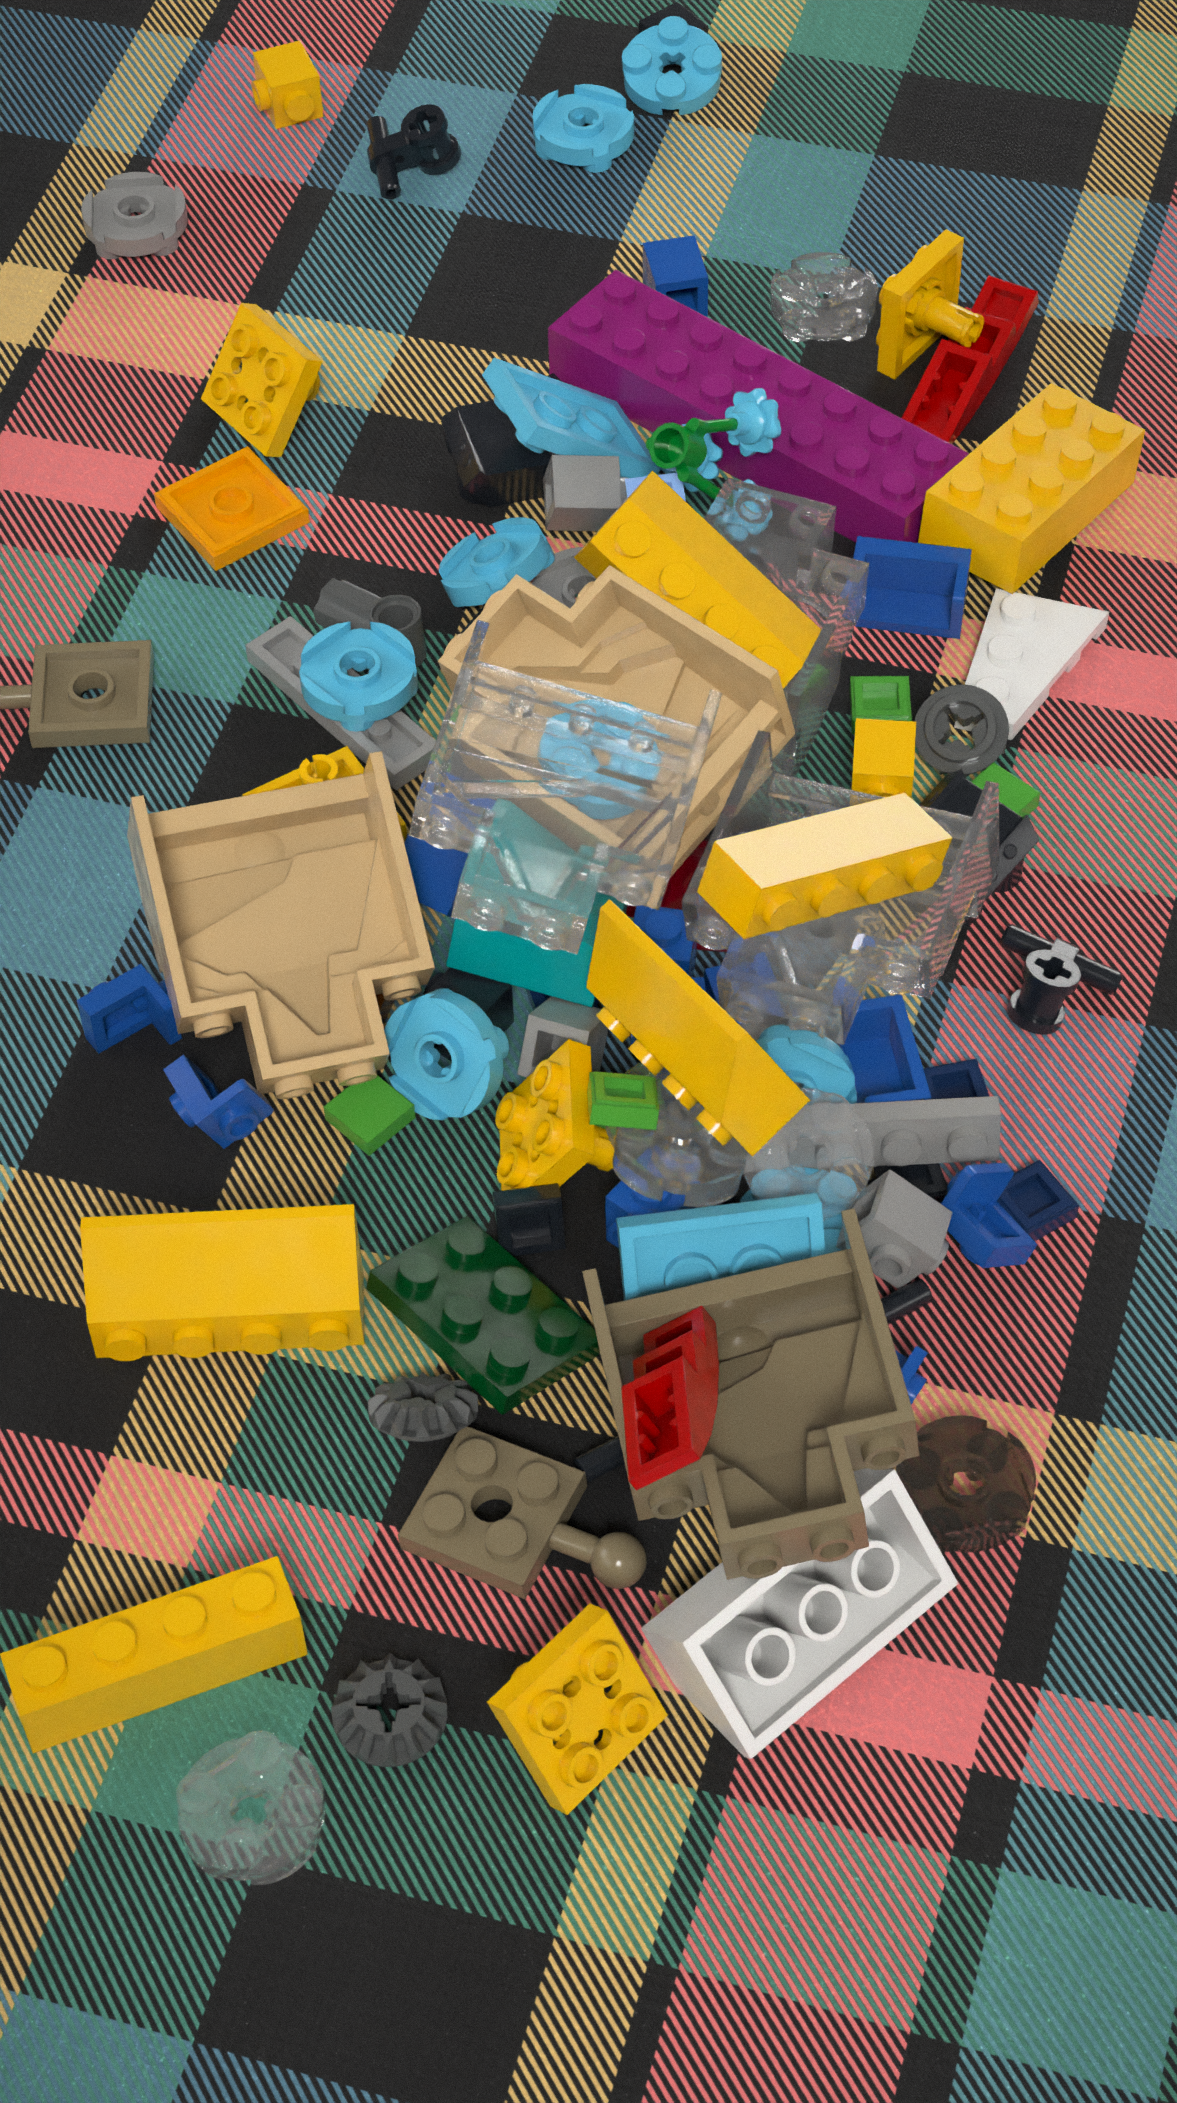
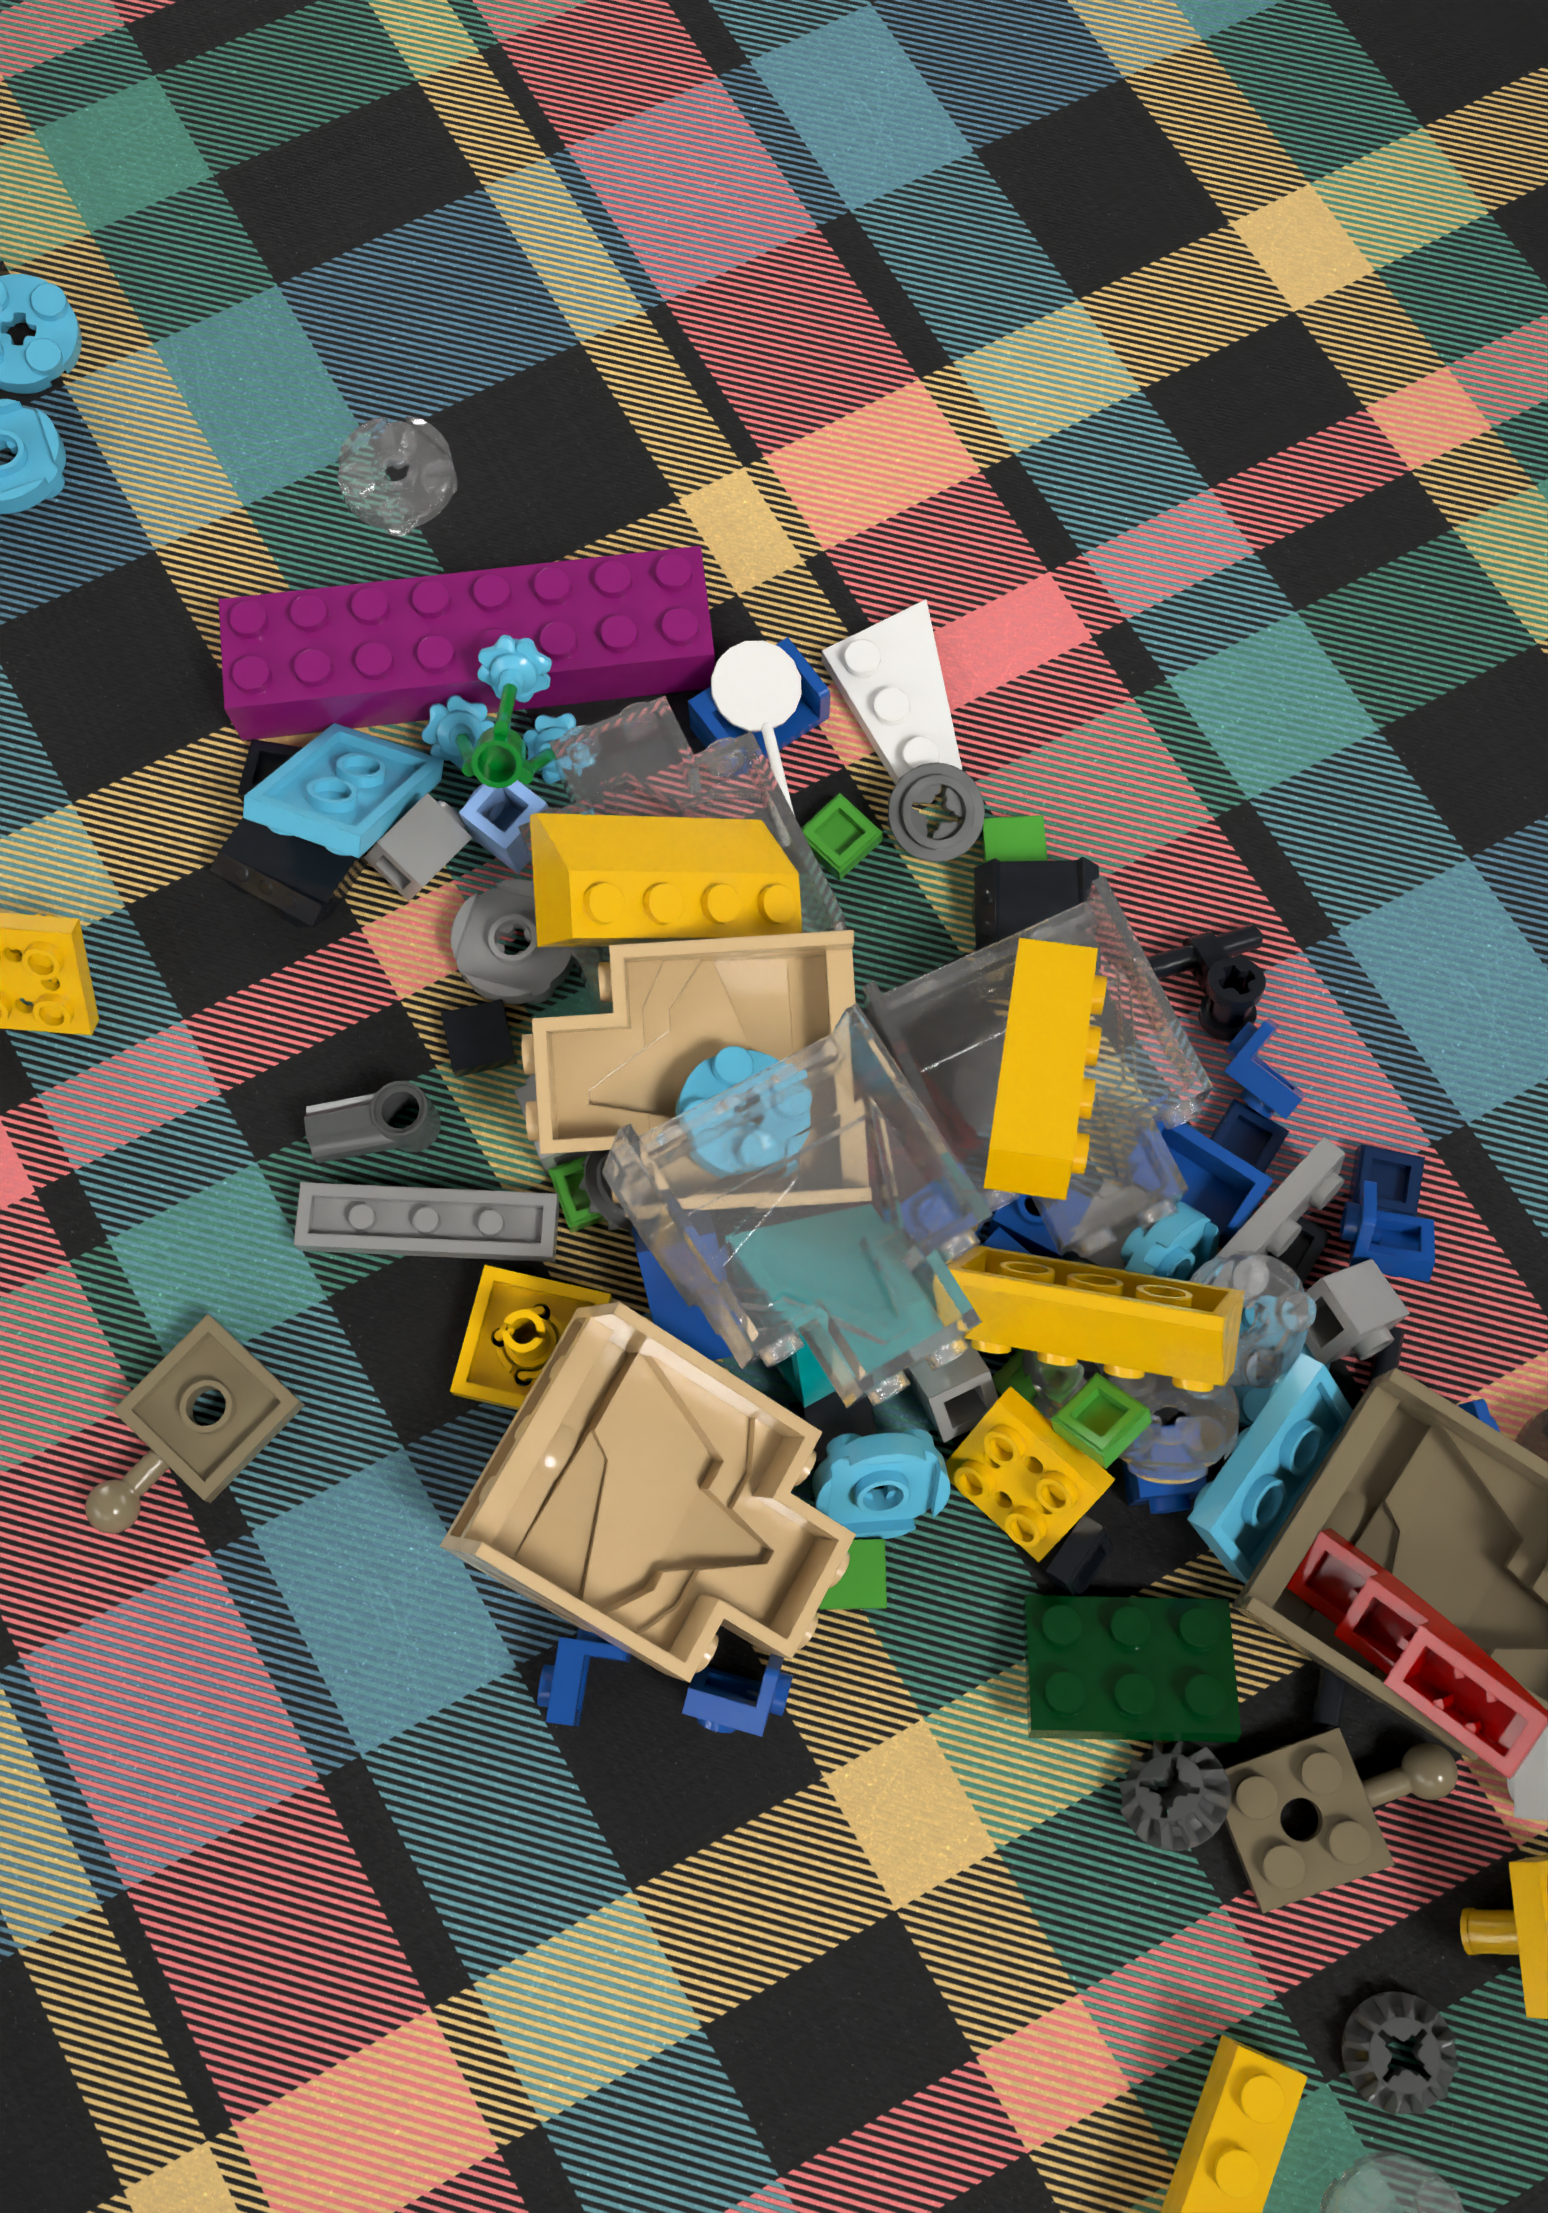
camera: 45 degrees left, 20 degrees up
(223, 1281) = (937, 1854): yellow slope -> none
(231, 508) = (117, 1112): light orange tile -> none
(361, 699) = (404, 1167): medium azure plate -> none
(482, 567) = (446, 986): medium azure plate -> none
(677, 271) = (257, 555): blue brick -> none
(883, 757) = (921, 903): yellow brick -> none
(910, 563) = (758, 691): none -> white piece
(924, 305) = (506, 423): yellow plate -> none
(963, 376) = (580, 444): red slope -> none
(1007, 1044) = (1264, 1087): none -> blue bracket
(1032, 486) = (766, 529): yellow brick -> none

